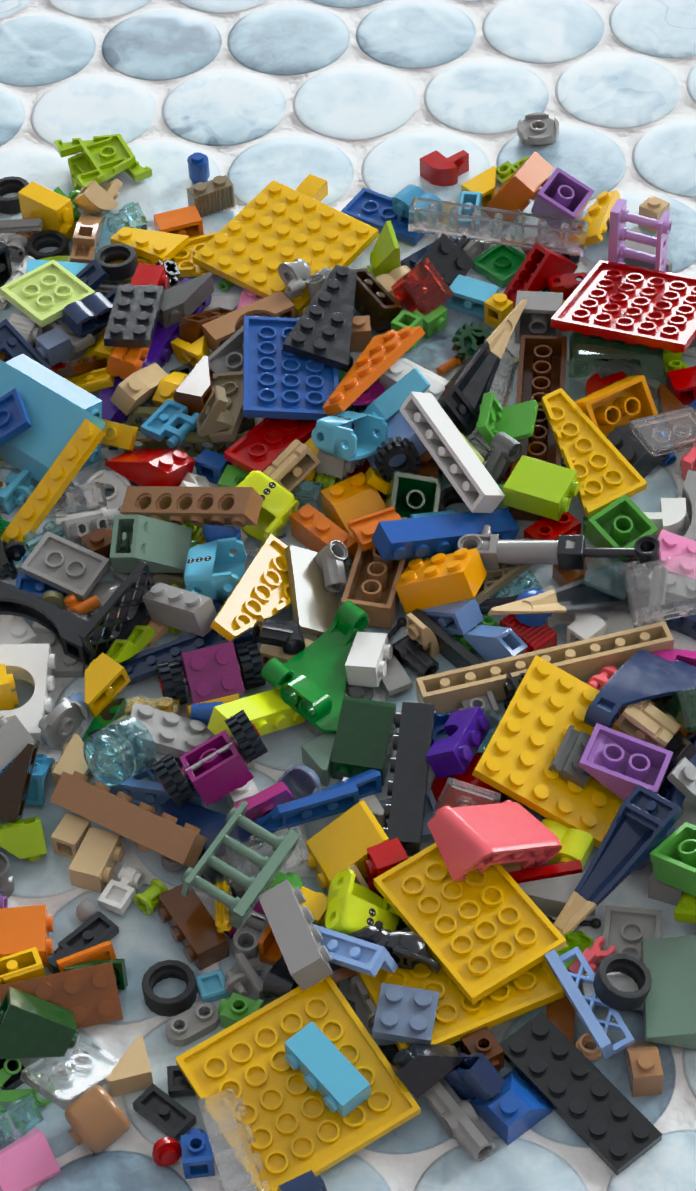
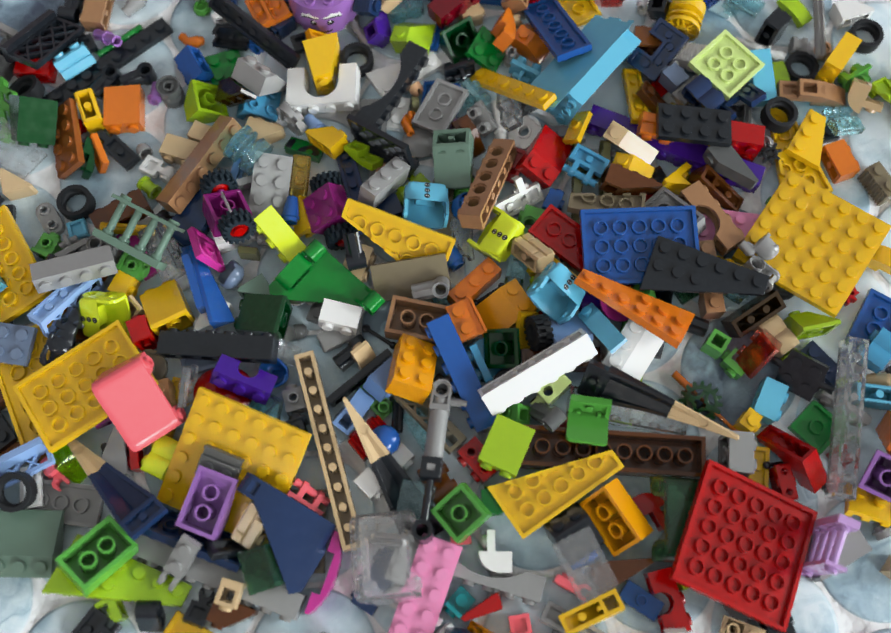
camera: 85 degrees right, 25 degrees up
(214, 414) = (584, 194): dark tan slope -> none
(266, 770) = (249, 253): none -> olive tile

